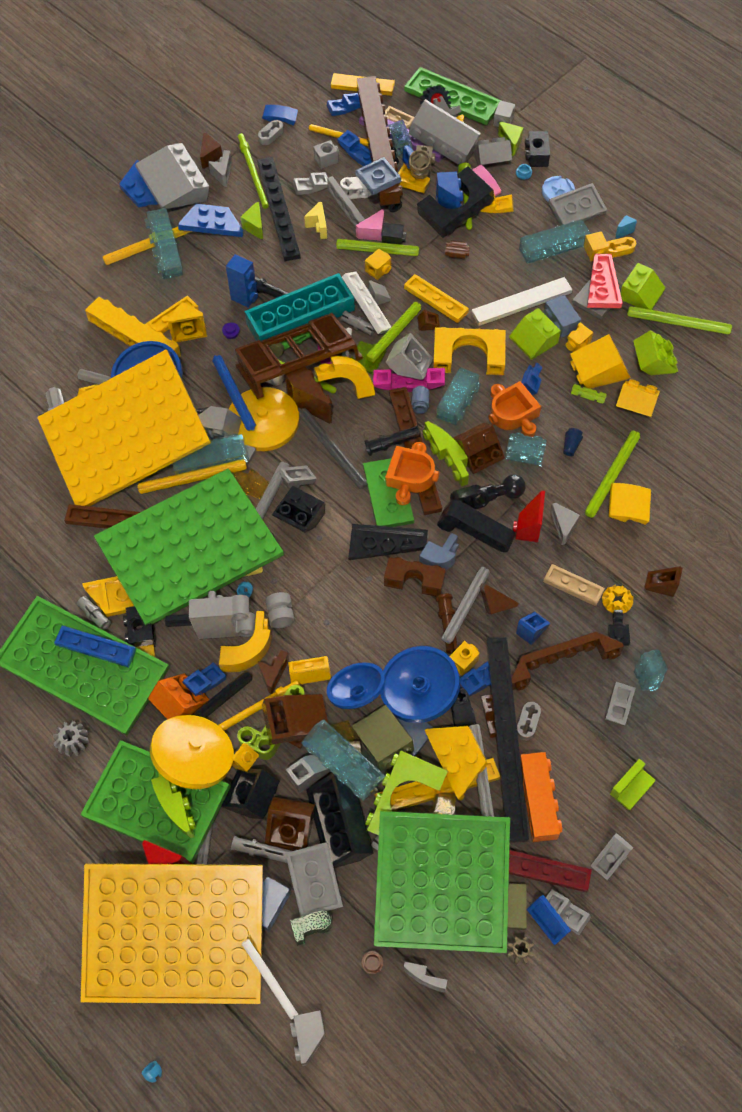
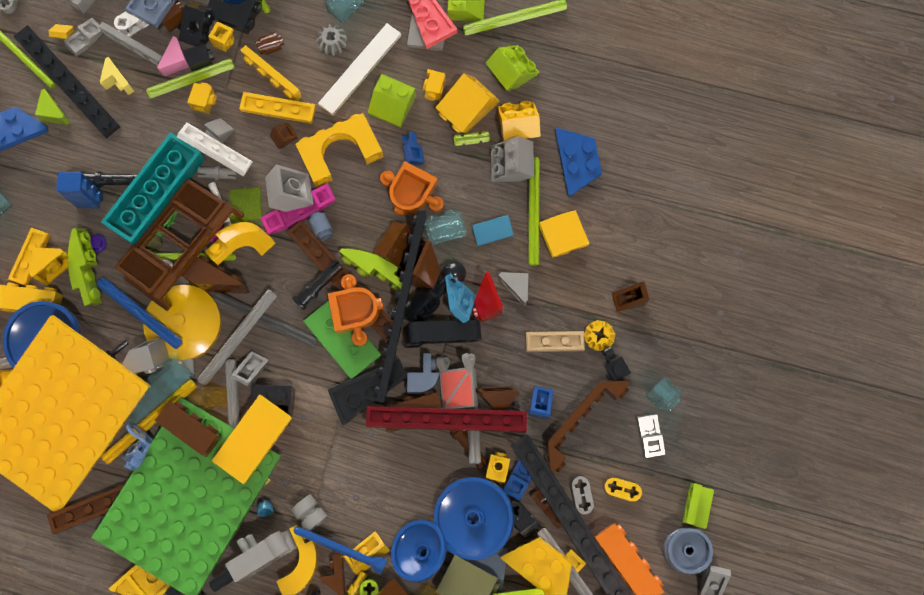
camera: 30 degrees left, 15 degrees up
(170, 490) = (137, 451): none -> medium blue piece
(211, 333) = (80, 260): none -> lime slope
(222, 490) = (188, 428): none -> reddish brown brick
(268, 524) = (252, 439): none -> yellow tile
(295, 171) = (61, 31): none -> yellow tile
(302, 447) = (237, 337): none -> light grey axle
(314, 678) = (376, 564): none -> blue piece
(393, 332) = (256, 166): lime axle -> none
(397, 210) = (189, 32): none -> black brick
(420, 232) = (225, 37): none -> yellow brick
(442, 266) = (275, 77): none -> yellow plate
(442, 591) = (446, 419): none -> dark red plate
(447, 490) = (398, 314): none -> black plate
(458, 396) = (355, 204): clear light blue brick -> none
(467, 573) = (457, 384): none -> flag
(490, 468) = (427, 268): none -> reddish brown slope
(507, 505) = (460, 299): none -> dark azure wing
(510, 268) = (325, 43): none -> light grey gear
(562, 315) = (406, 67): sand blue brick -> none
(566, 739) = (624, 485): none -> yellow beam
(567, 471) = (492, 230): none -> dark azure slope
(572, 440) = (482, 197): dark blue cone -> none
(601, 813) = (700, 550): none -> sand blue wheel
(615, 424) = (512, 160): none -> light grey slope
(675, 452) = (578, 159): none -> blue wing

